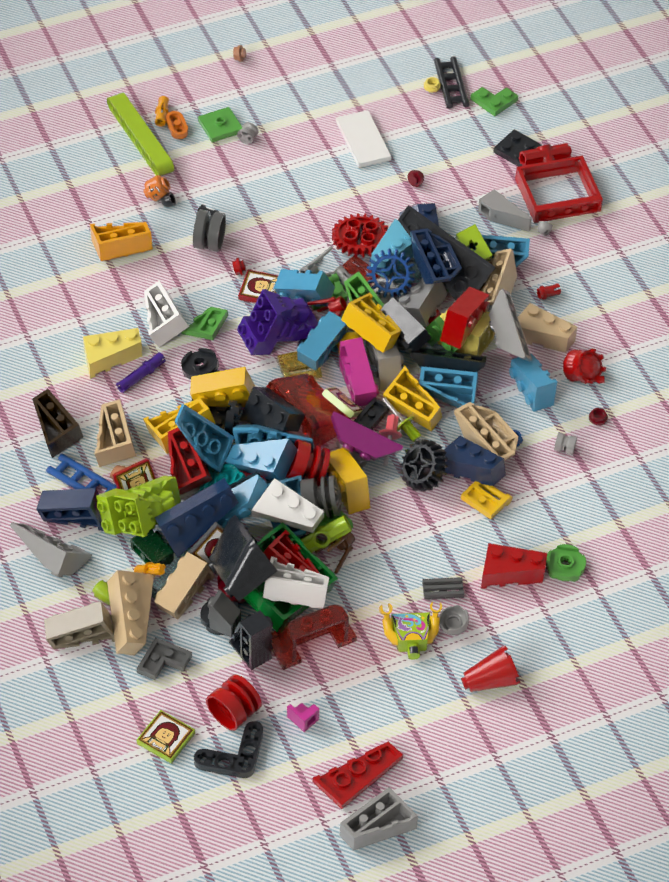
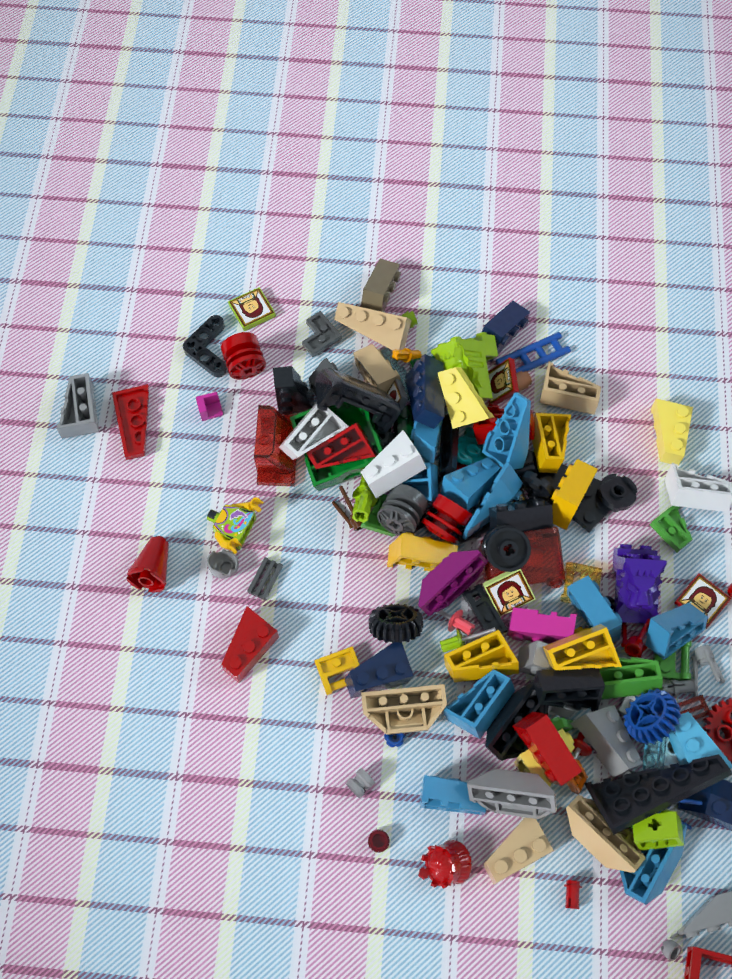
camera: 120 degrees right, 15 degrees up
(52, 554) = (467, 302): light grey wedge -> none
(56, 423) = (603, 352): dark brown wedge -> none
(146, 368) = (638, 452): dark purple pin -> none
(189, 480) = (462, 399): none -> light yellow wedge
(316, 399) = (517, 552): none -> black wheel
(434, 257) = (644, 764): dark blue wedge -> none
(565, 572) = (227, 687): bright green plate -> none

